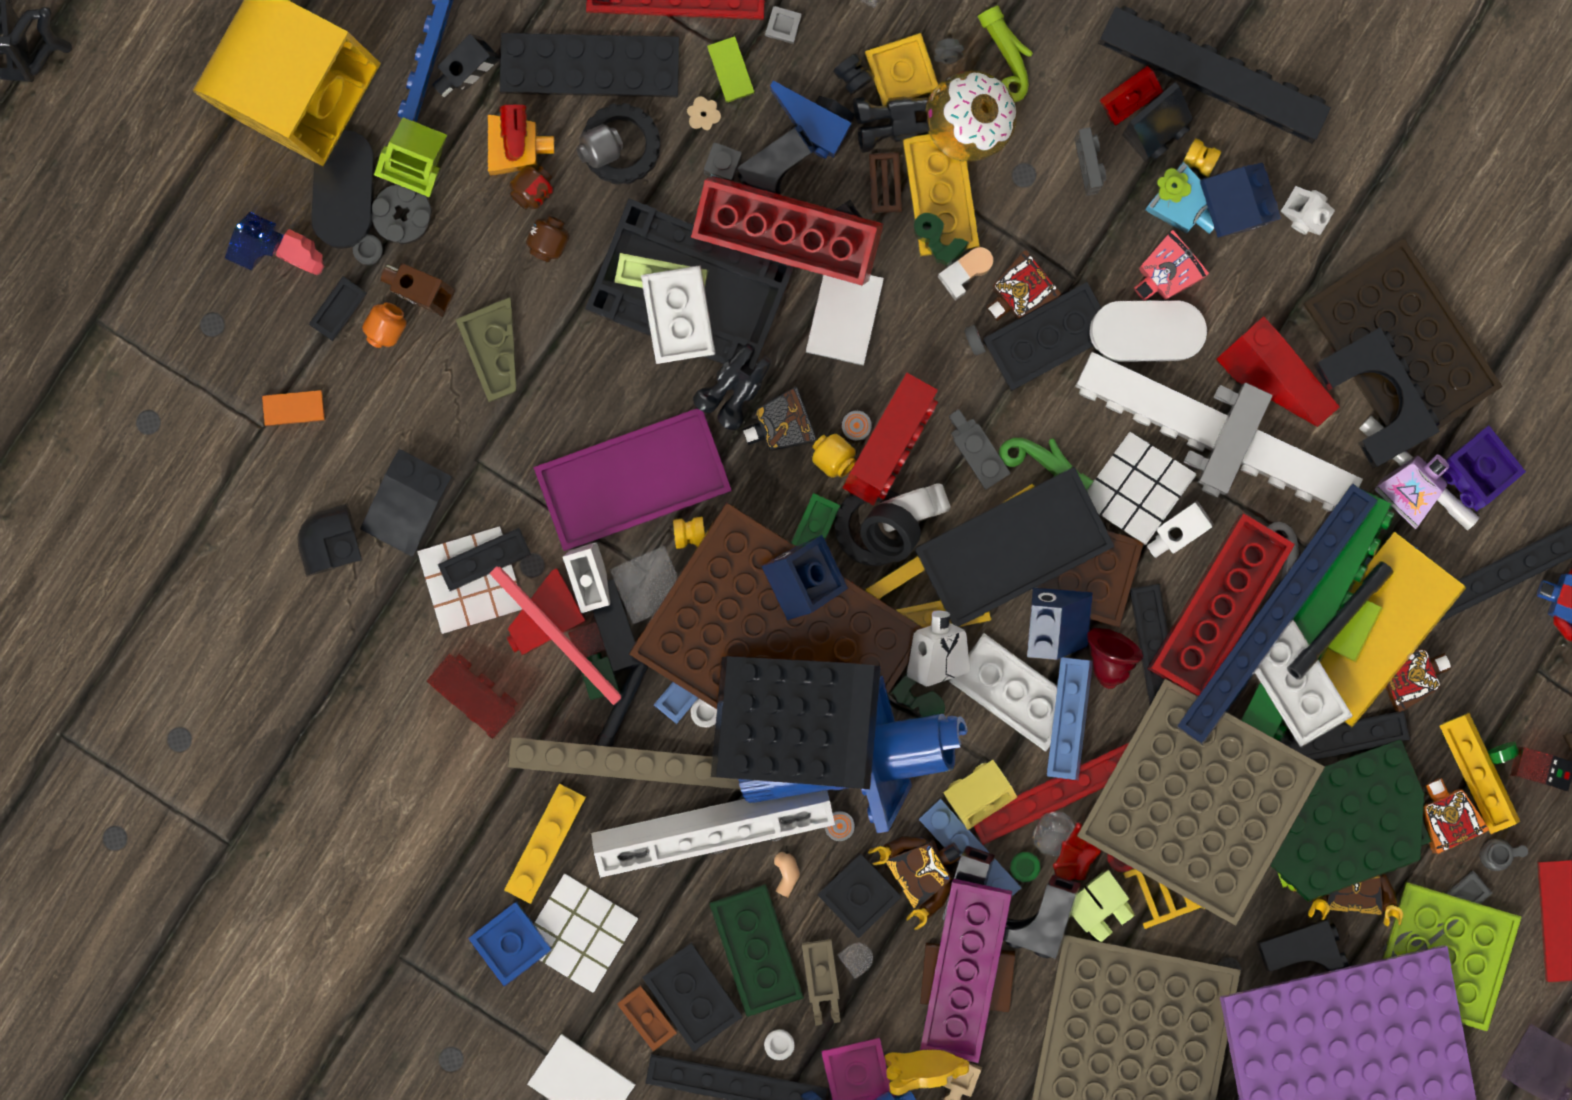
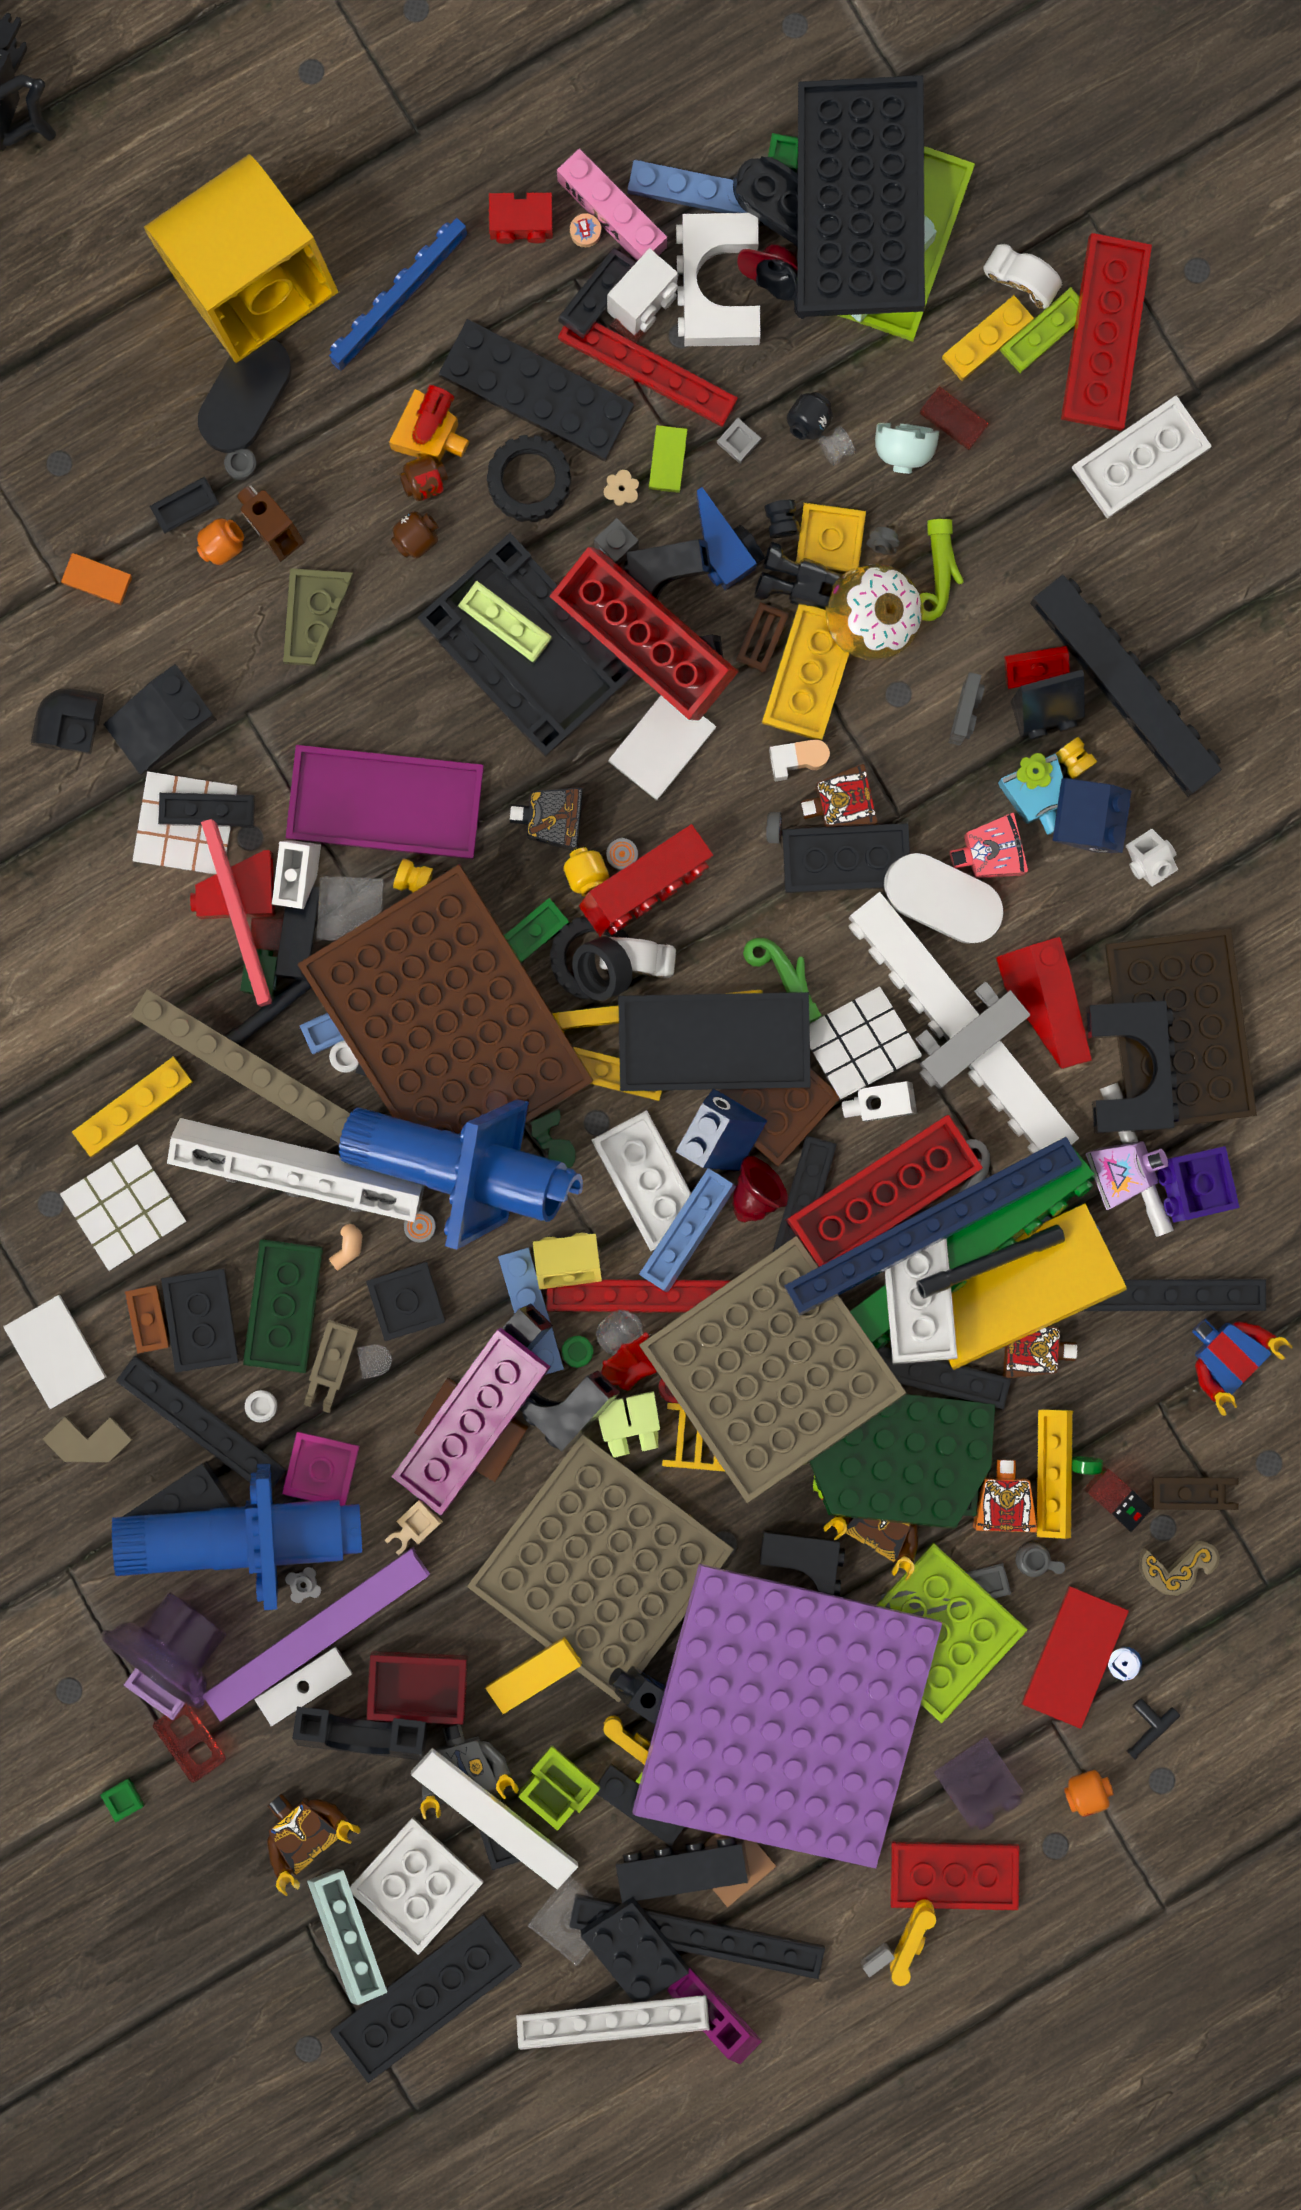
camera: 25 degrees right, 0 degrees up
(252, 240) = (134, 400): clear blue brick -> none
(300, 252) = (174, 434): coral rock -> none
(396, 230) = (276, 431): dark grey plate -> none
(412, 157) = (323, 394): lime plate -> none
(474, 695) = (133, 933): clear red wedge -> none
(476, 59) = (418, 331): black torso -> none
(510, 944) = (52, 1186): blue tile -> none
(599, 146) = (506, 469): flat silver head -> none
(678, 314) = (503, 665): white tile -> none
(739, 378) = (532, 758): black piece -> none
(796, 721) = (421, 1103): black slope -> none
(804, 578) = (498, 971): dark blue slope -> none
(921, 872) = (474, 1307): torso -> none
(922, 1069) = (383, 1495): yellow tile -> none
(930, 229) = (782, 701): dark green leg -> none
(938, 652) = (593, 1105): white torso -> none
(977, 450) = (726, 934): dark grey hinge -> none
(1355, 634) = (1000, 1281): lime tile -> none

